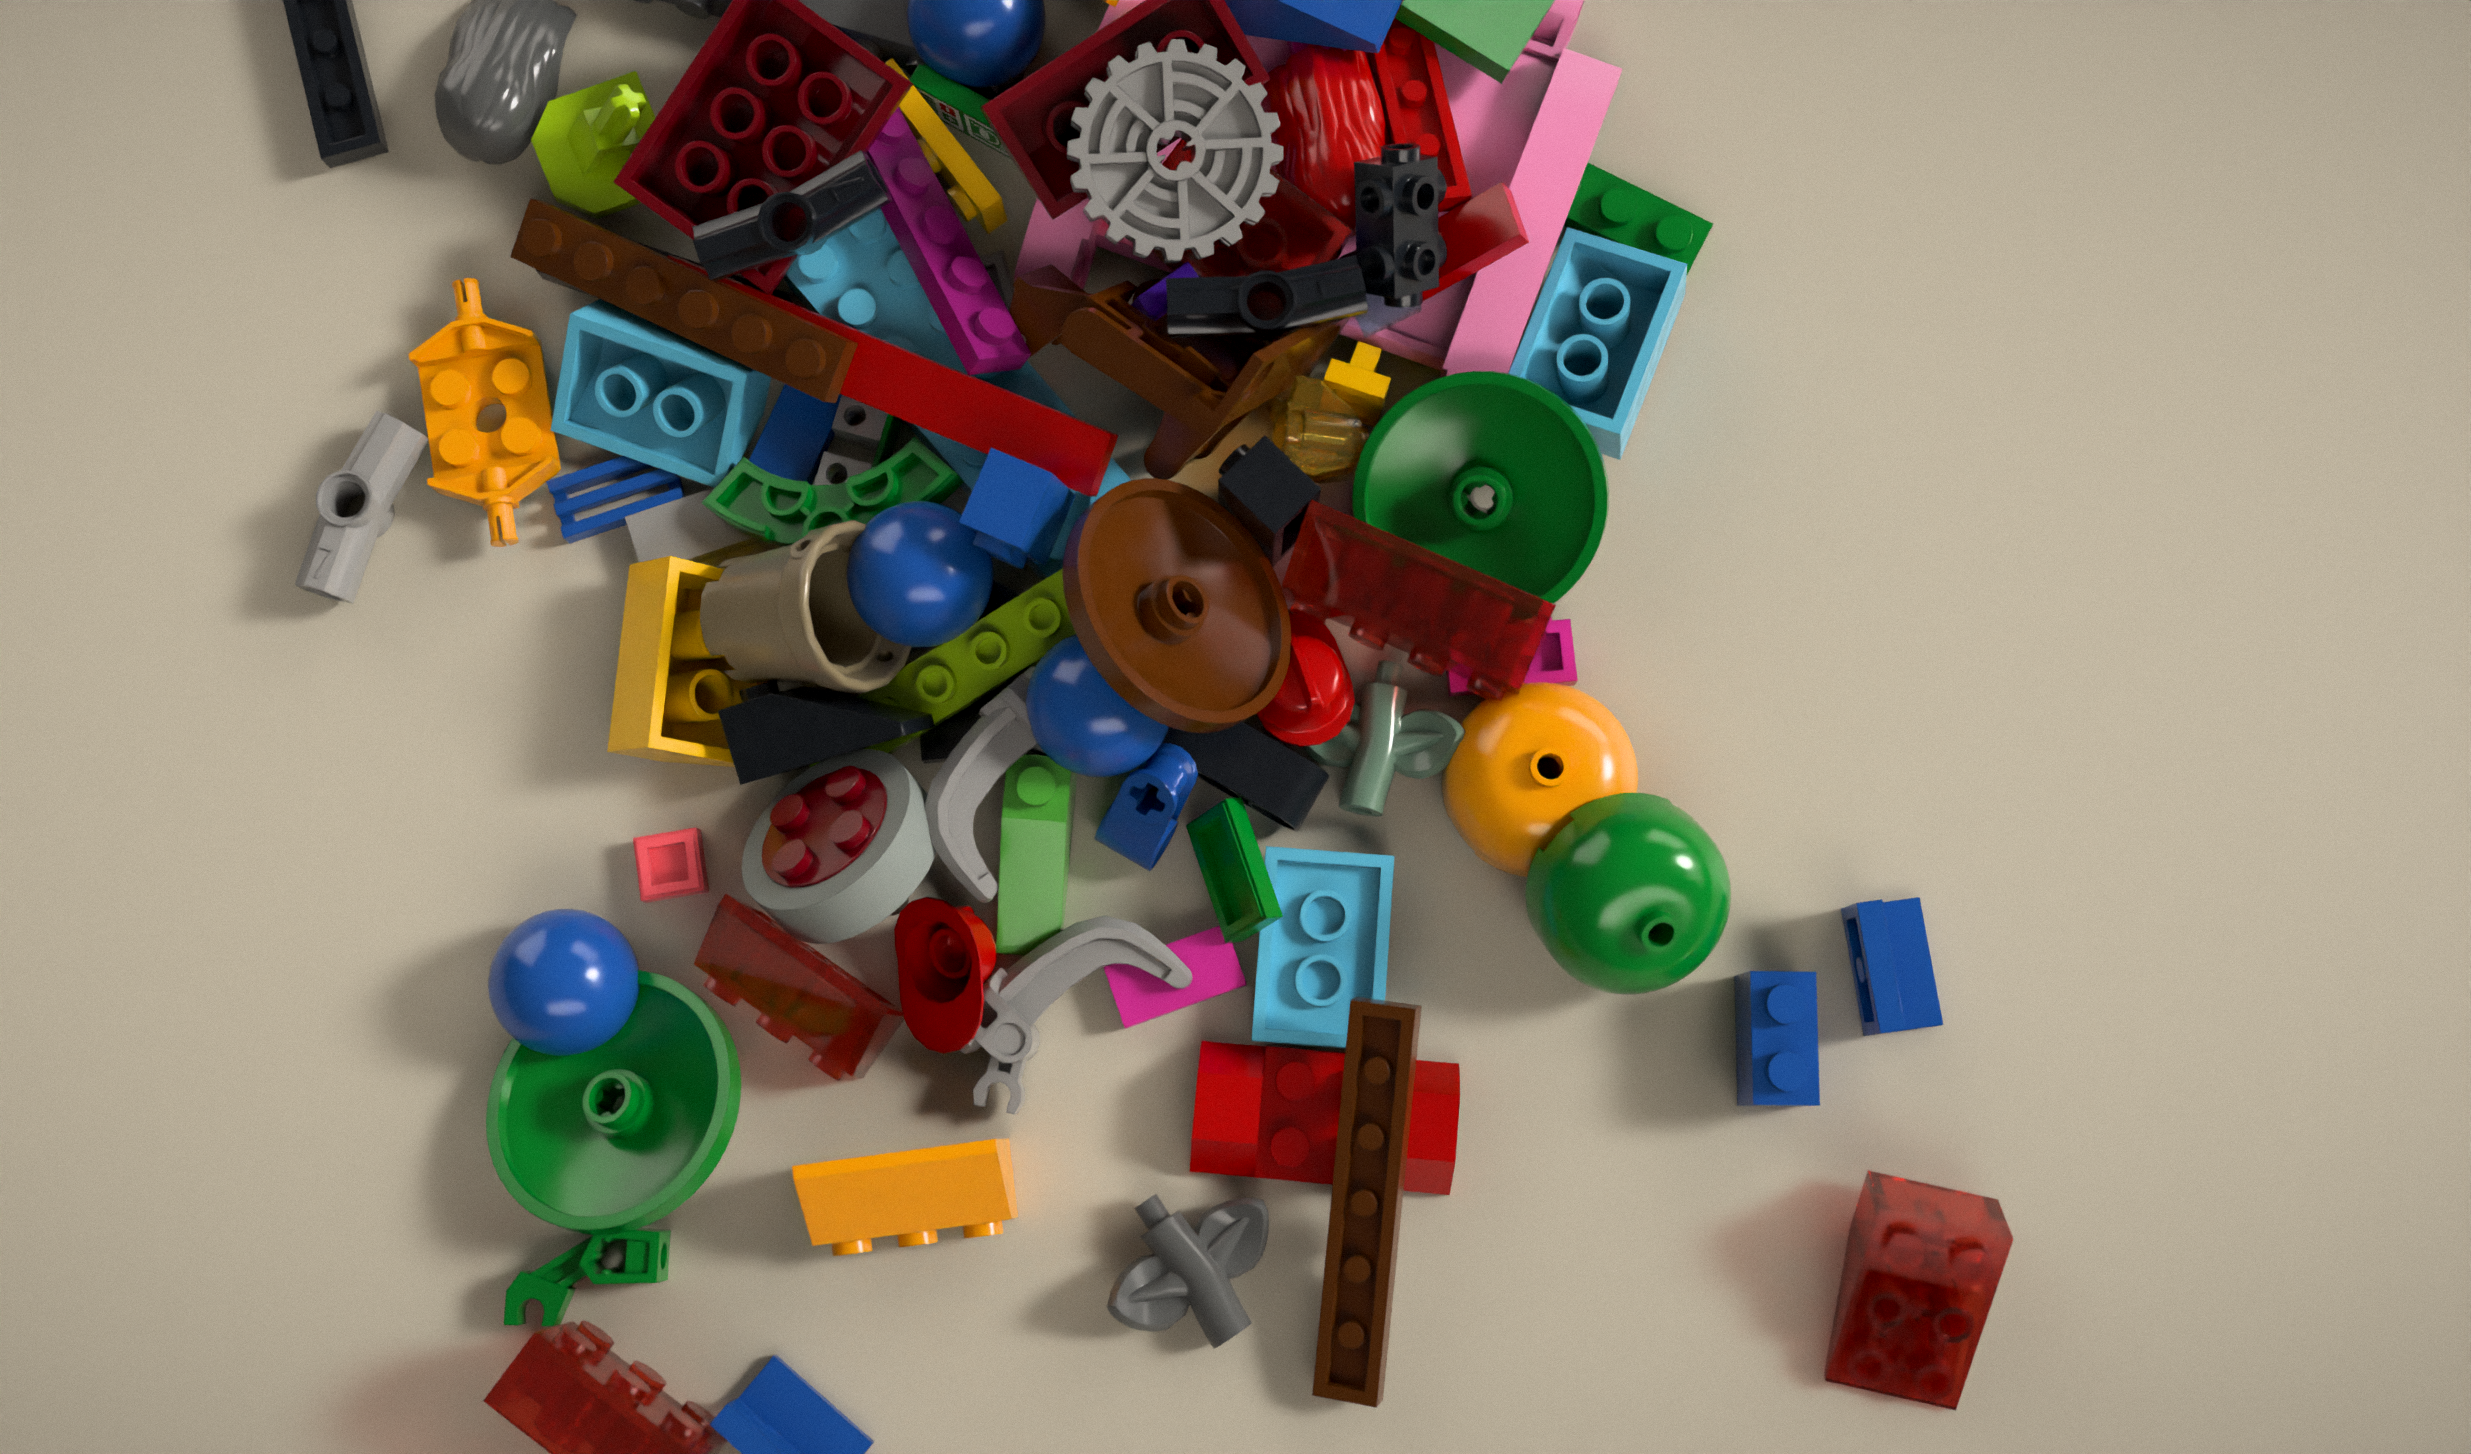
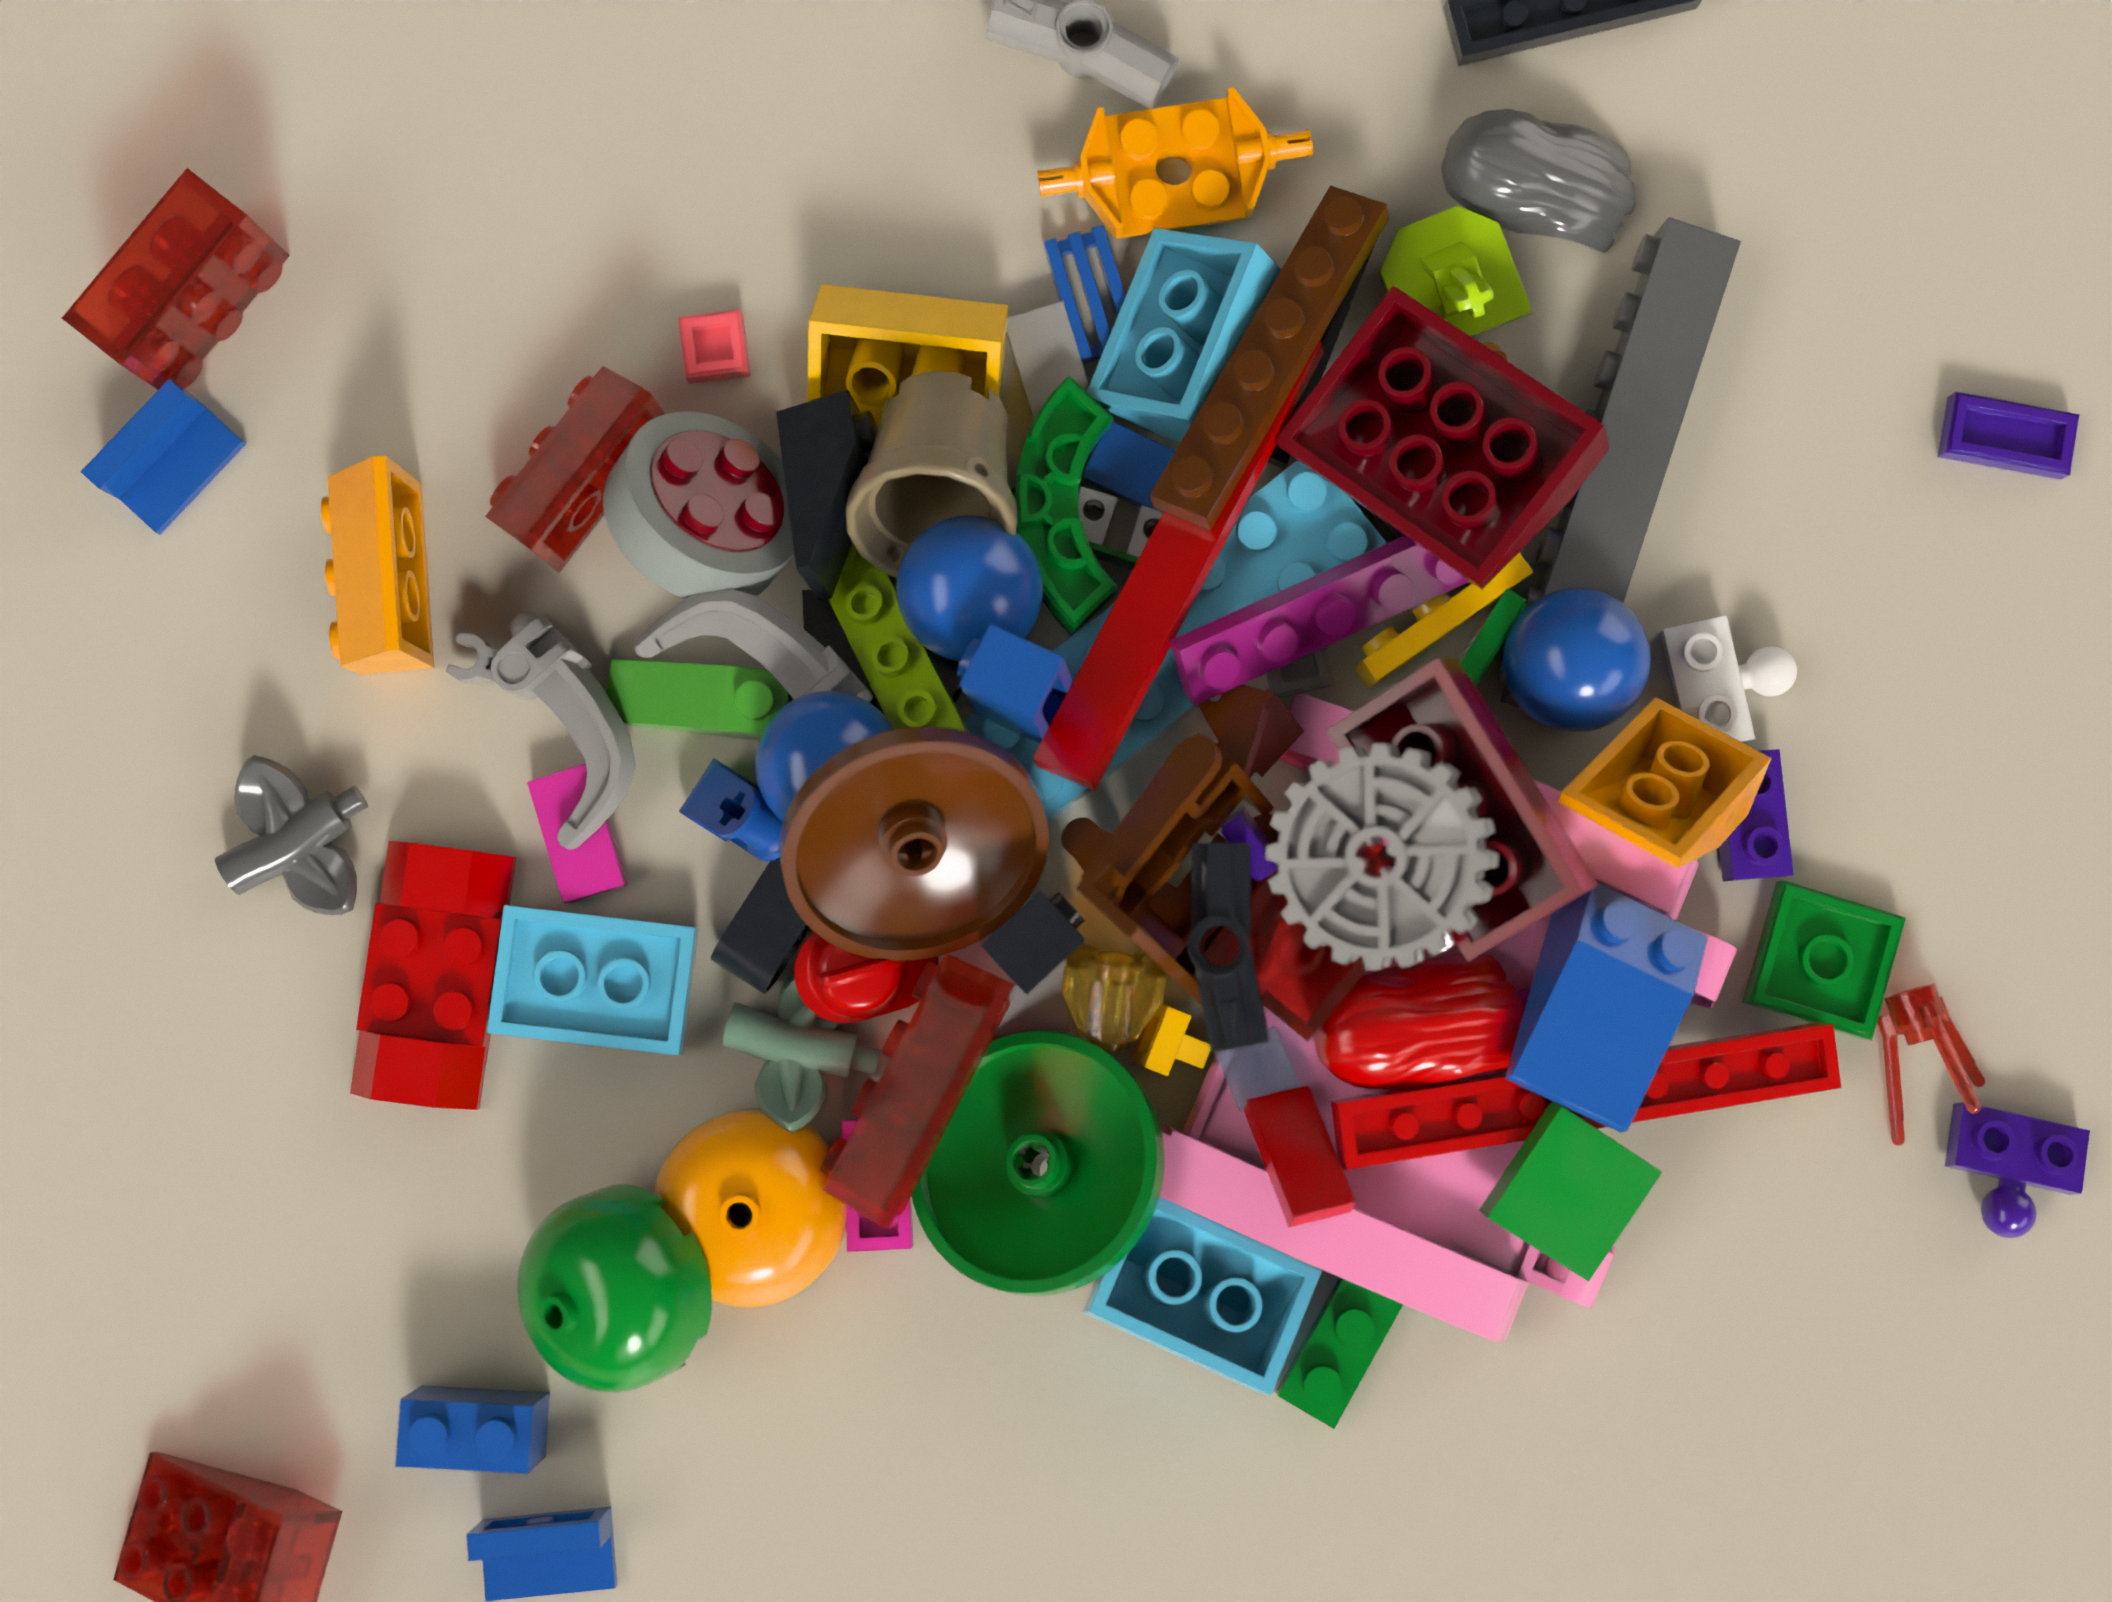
camera: 90 degrees right, 5 degrees up
(553, 1282) = (322, 239): green piece -> none
(563, 982) = (597, 243): blue piece -> none
(622, 1128) = (477, 290): green dish -> none
(756, 236) = (1351, 498): black piece -> none
(942, 970) = (588, 605): red piece -> none
(1234, 870) = (671, 894): green tile -> none
(1366, 1201) = (338, 1010): reddish brown plate -> none
(1399, 224) = (1305, 1088): black brick -> none

